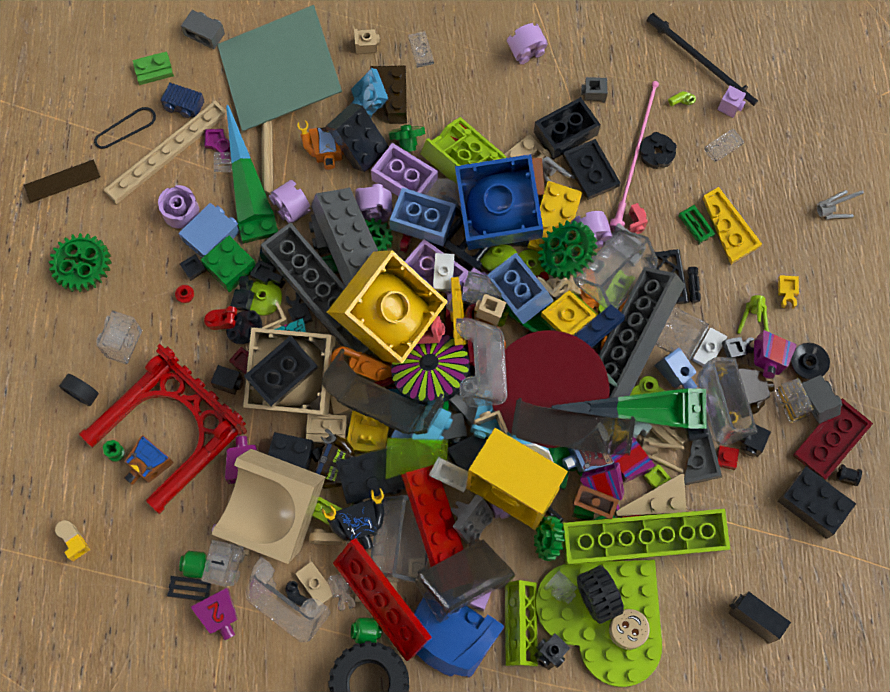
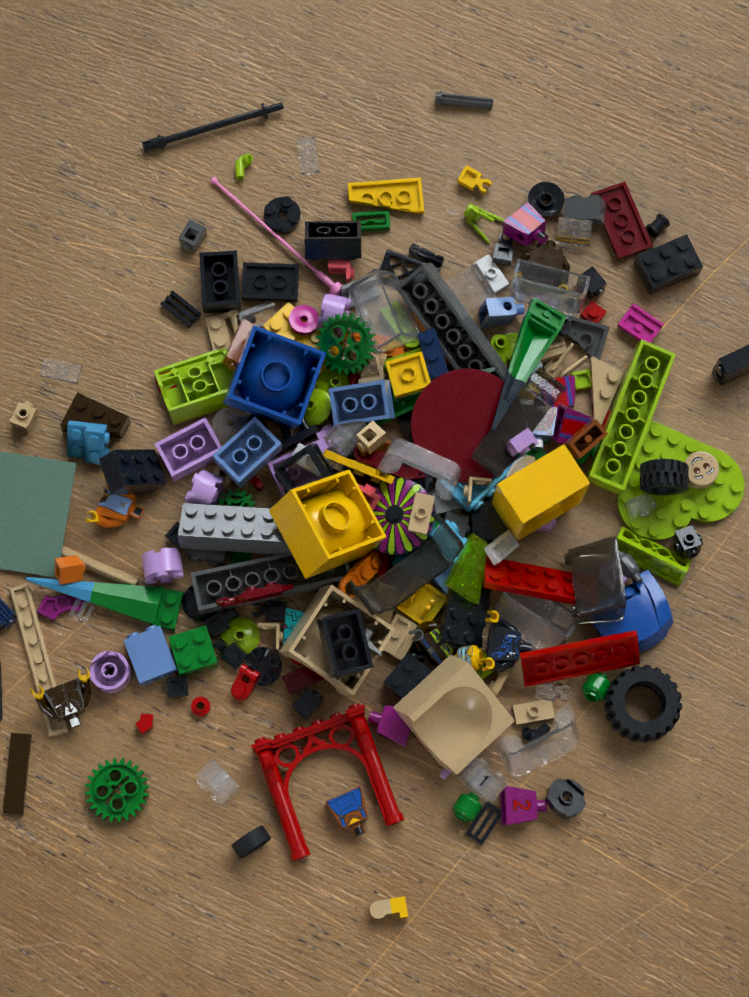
camera: 65 degrees left, 5 degrees up
(118, 455) = (326, 830): green bush -> none
(137, 183) = (65, 700): none -> dark brown torso
(149, 257) = (145, 723): none -> red piece
(232, 654) = (559, 805): none -> black plate
(250, 133) = (69, 569): none -> orange brick
(295, 280) = (253, 594): none -> dark red plate
(297, 397) = (372, 648): none -> light grey bar
(333, 495) = (472, 655): none -> yellow head
(407, 136) = (149, 427): green plant -> none
(440, 383) = (421, 513): none -> tan plate
(444, 270) = (316, 456): none -> black window
(472, 518) = (545, 550): flat silver plate -> none
(497, 605) = (630, 567): none -> dark grey plant
(527, 43) = (112, 270): lavender brick -> none
(529, 100) = (169, 299): none -> black tile
(549, 538) = (598, 496): green gear -> none
(556, 441) = (521, 443): none -> lavender brick
(567, 202) = (303, 312): none -> dark pink piece
(657, 197) = (332, 240): none -> black brick
(732, 102) = (271, 125): lavender brick -> none
(741, 505) = (640, 324): none -> dark pink plate
(827, 207) = (415, 104): light grey plant -> none
(857, 246) = (463, 100): none -> dark grey axle

